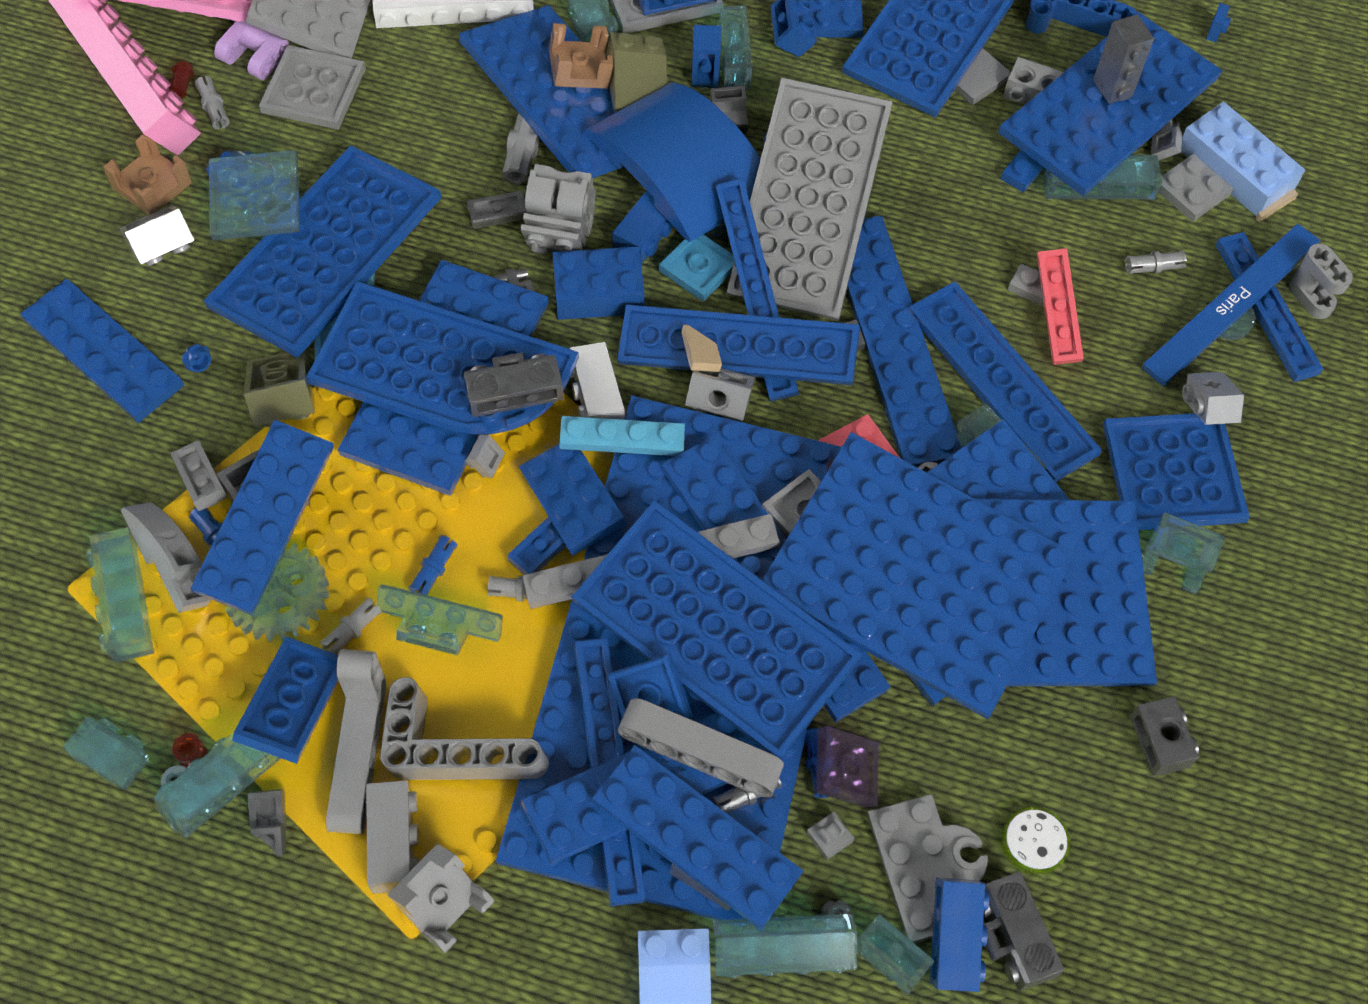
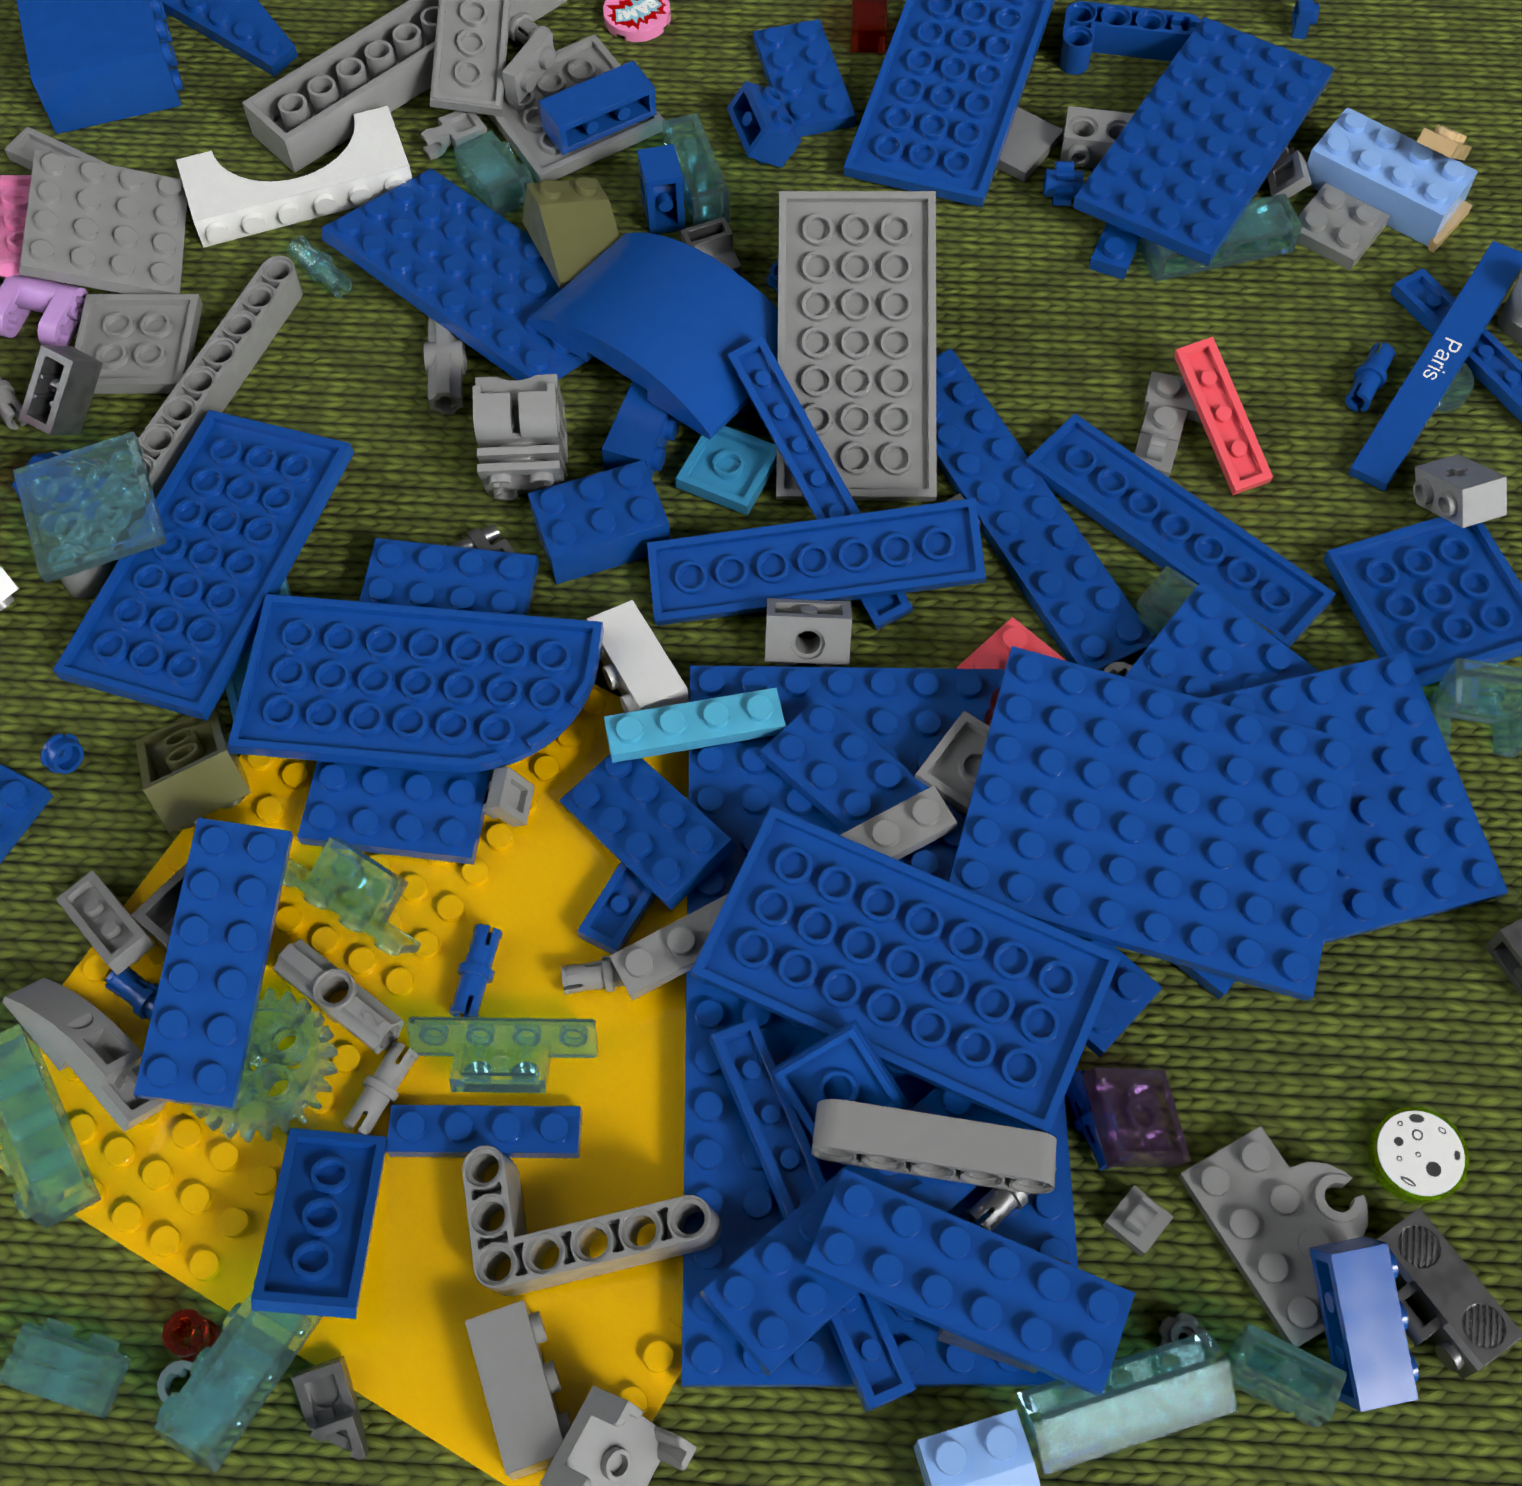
camera: 10 degrees left, 0 degrees up
(254, 109) = (60, 390): none -> flat silver brick
(348, 572) = (357, 1012): none -> light grey piece
(357, 125) = (209, 383): none -> light grey beam
(365, 691) = (424, 1178): light grey beam -> none
(367, 493) = (357, 891): none -> clear light blue bracket
(430, 674) = (461, 1128): none -> blue plate
(453, 59) = (320, 266): none -> clear light blue pin
(496, 209) = (433, 453): flat silver plate -> none
(513, 383) = (525, 686): flat silver piece -> none
(580, 62) = (495, 233): medium nougat panel -> none
(700, 350) = (769, 582): tan tile -> none
(997, 112) = (1062, 183): none -> blue gear
(1013, 312) = (1160, 436): none -> light grey plate
(1123, 58) = (1217, 74): flat silver brick -> none
(1155, 262) = (1323, 331): light grey pin -> none
(1179, 302) = (1370, 377): none -> blue pin
(1288, 143) = (1445, 142): none -> tan plate

